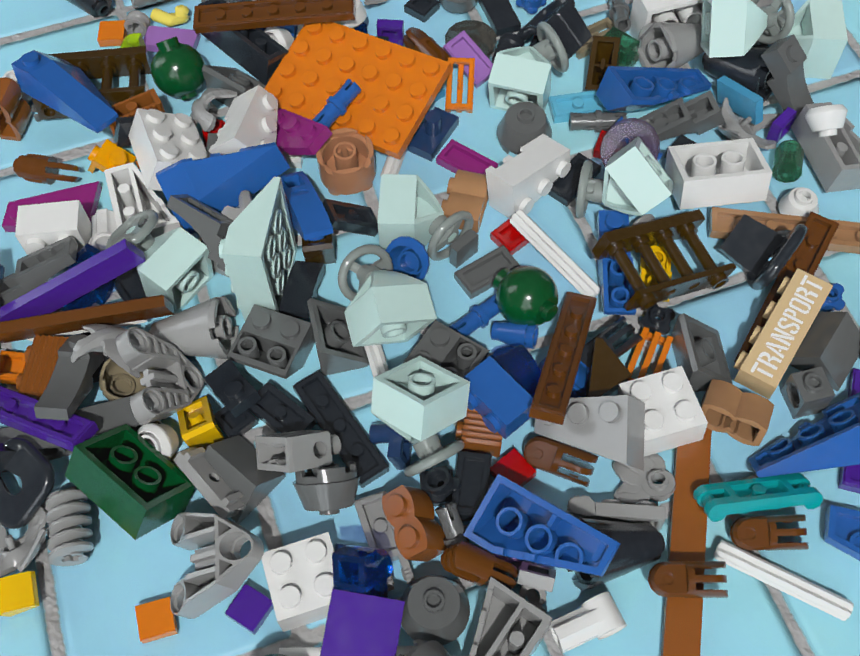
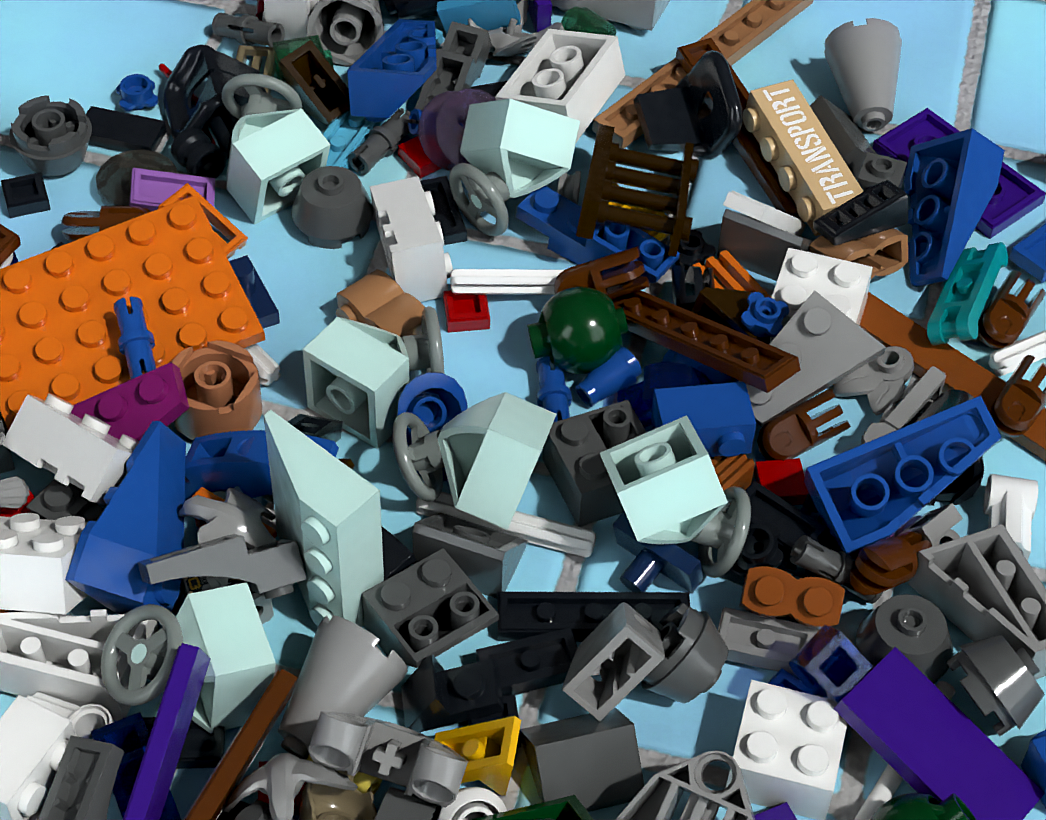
camera: 60 degrees left, 10 degrees down
(209, 482) = (582, 779): light grey piece -> none
(392, 28) = (41, 237): dark purple tile -> none
(460, 157) = (315, 289): magenta tile -> none
(463, 248) = (451, 352): dark grey tile -> none
(481, 273) = (495, 358): dark grey tile -> none
(578, 285) = (610, 274): none -> reddish brown arm
(610, 373) = (764, 315): none -> blue plate
(703, 337) = (764, 213): none -> white tile
(762, 396) = (866, 214): none -> black slope
(799, 202) = (647, 56): white cone -> none

